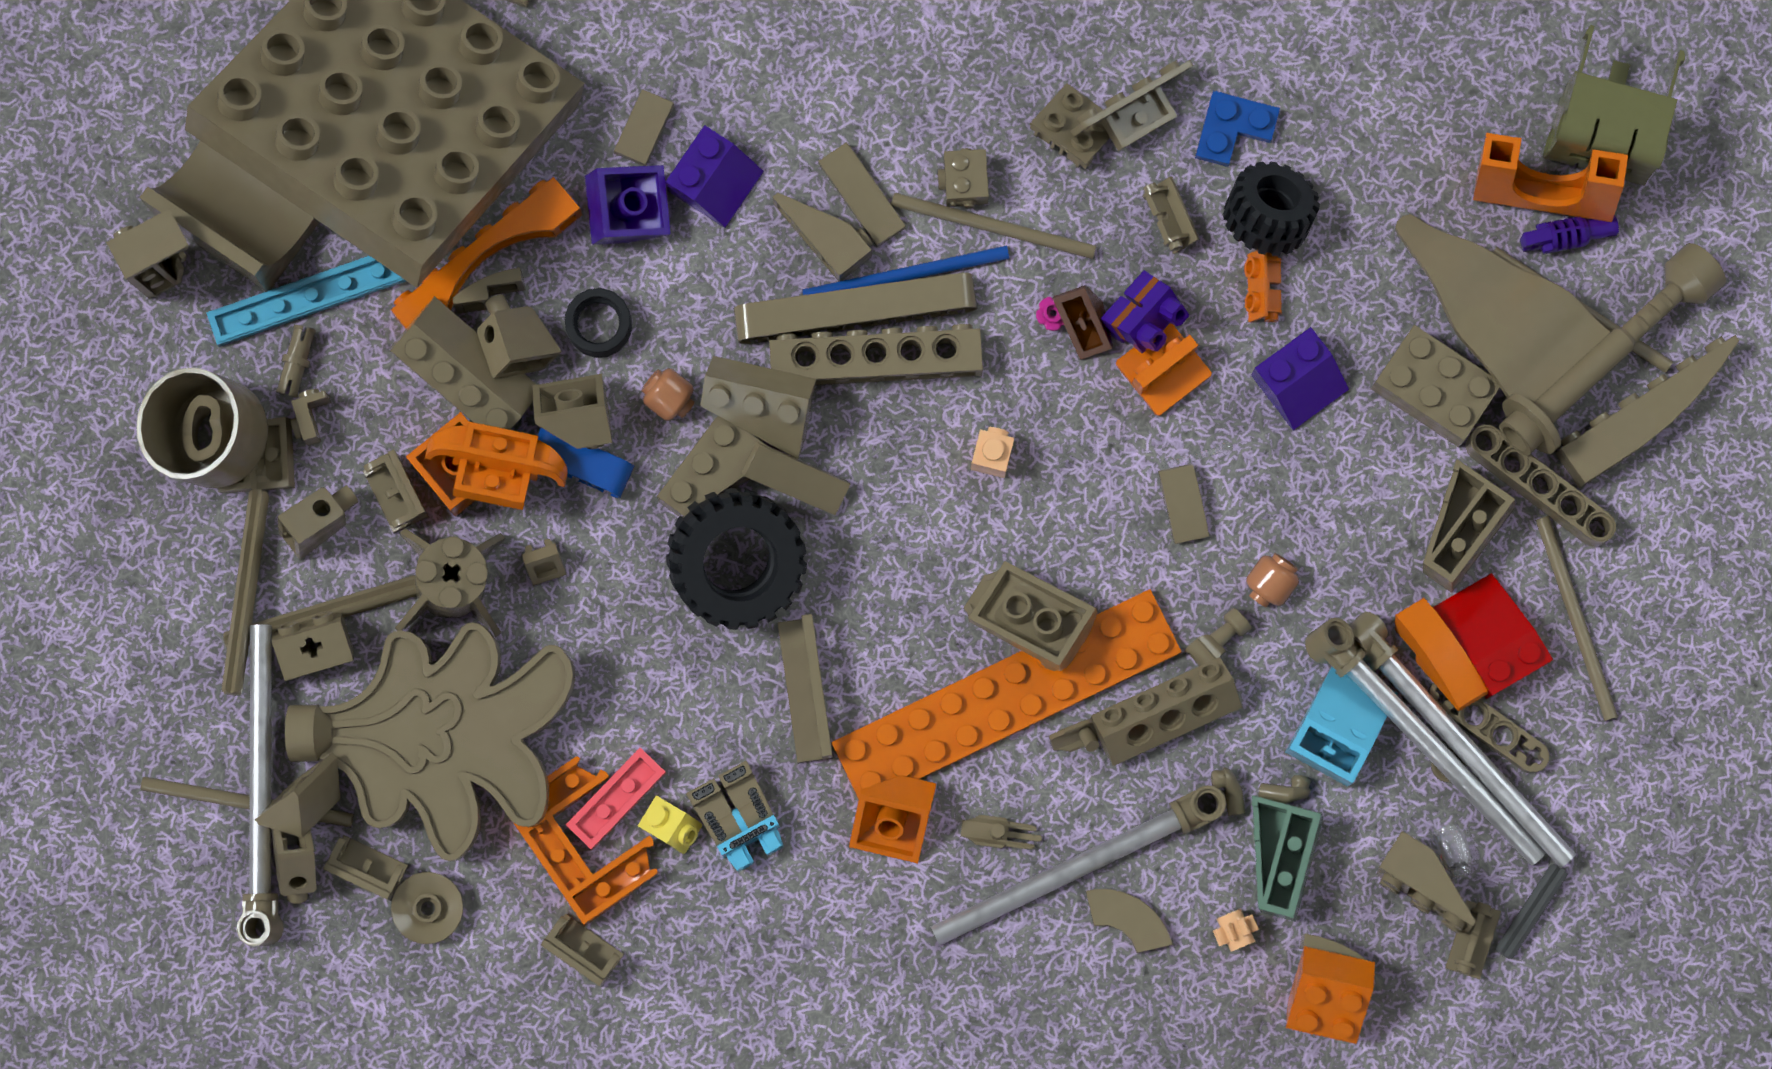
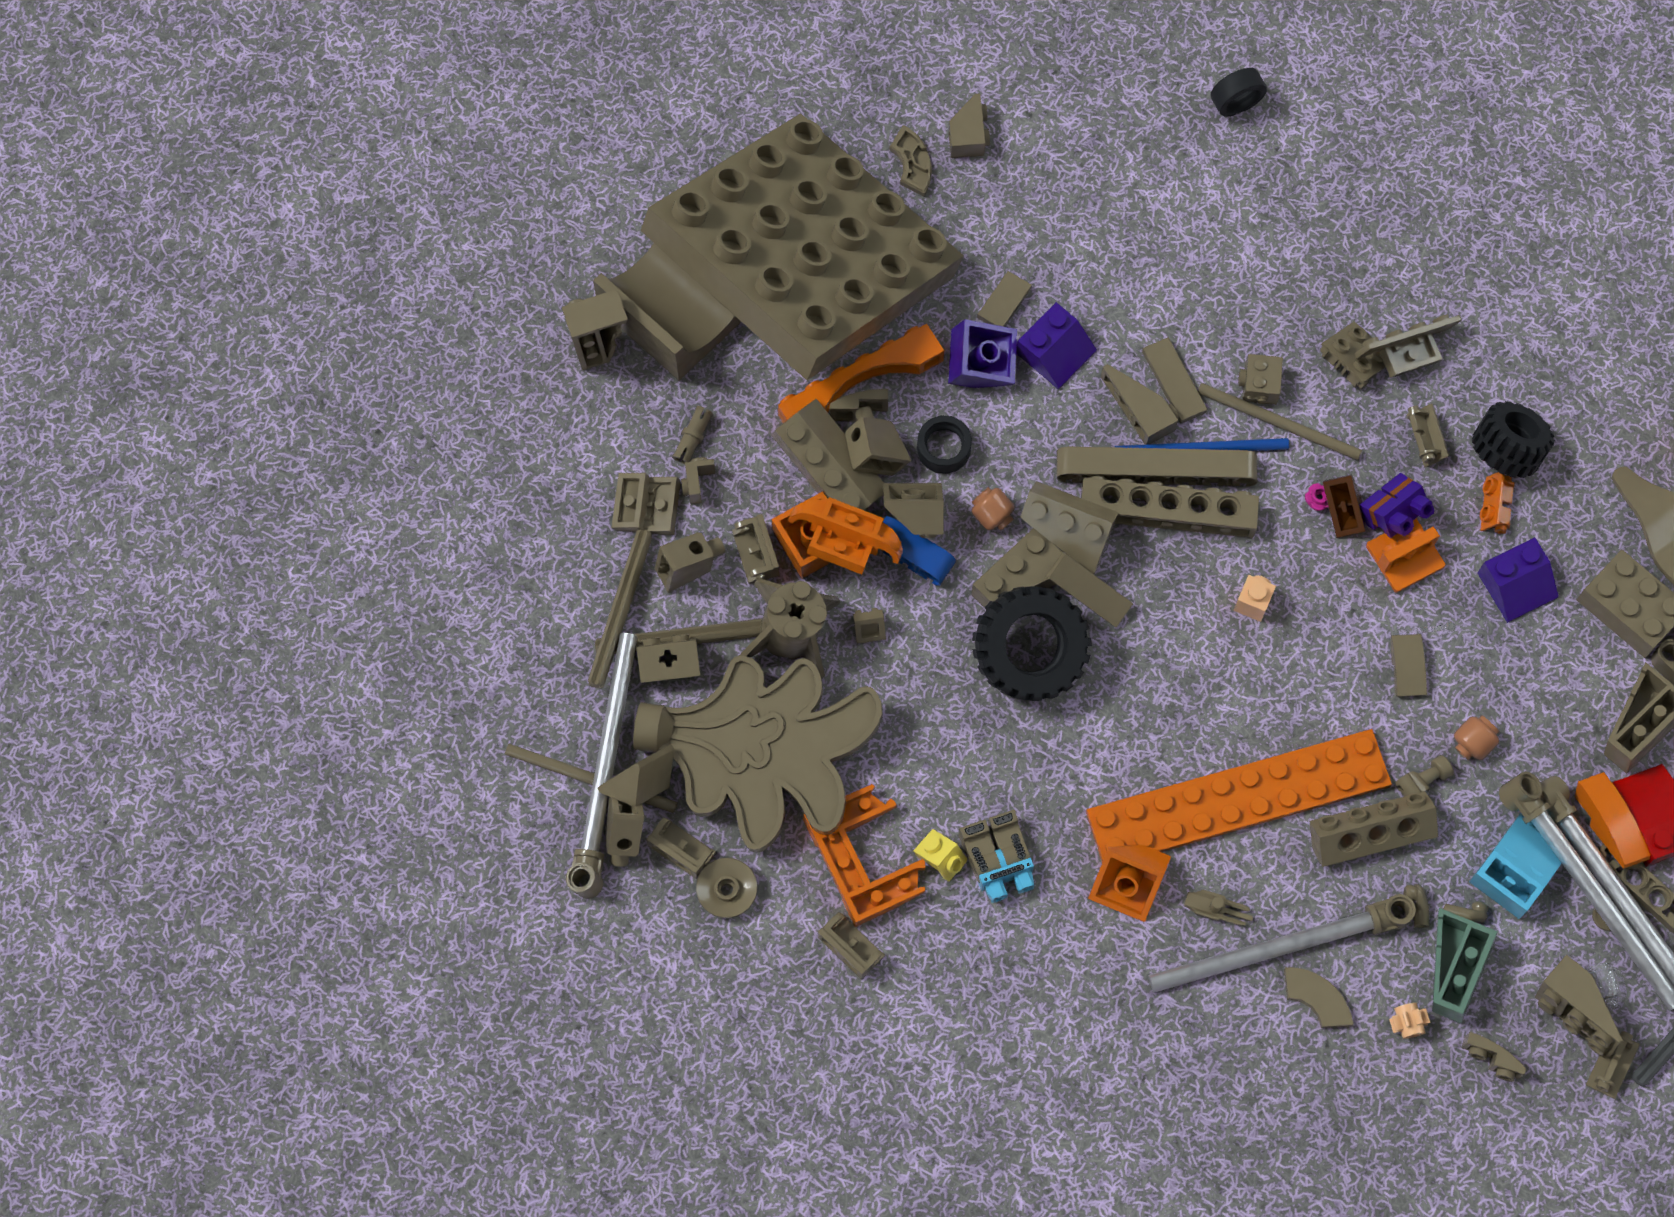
camera: 10 degrees right, 10 degrees down
(171, 422) = (593, 451): dark tan piece -> none
(300, 299) = (712, 387): medium azure tile -> none
(615, 798) = (898, 825): coral plate -> none
(805, 690) = (1071, 763): dark tan fence -> none
(1031, 615) = (1271, 731): dark tan slope -> none
(1075, 737) = (1292, 839): dark tan piece -> none
(1231, 117) = (1485, 368): blue plate -> none
(1330, 995) = (1486, 1086): orange brick -> none

